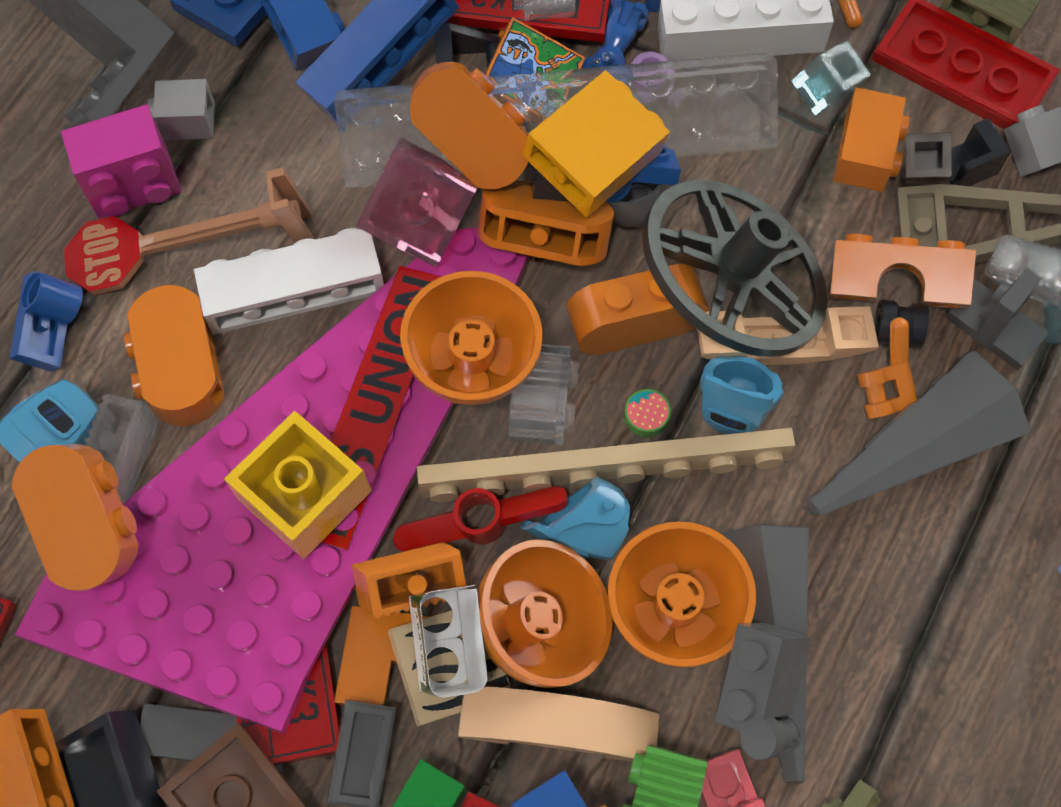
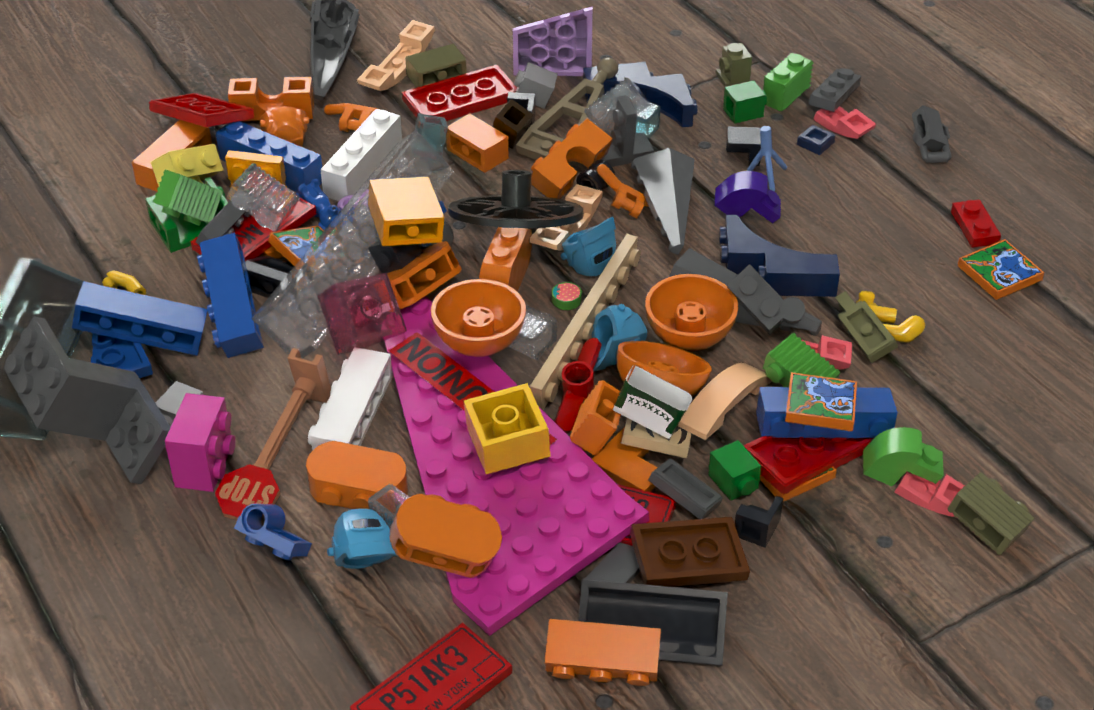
camera: 60 degrees left, 25 degrees down
(470, 124) = (339, 256): orange brick -> none
(875, 674) = (783, 269): none -> dark blue arch
(1002, 545) = (747, 191): none -> dark purple brick

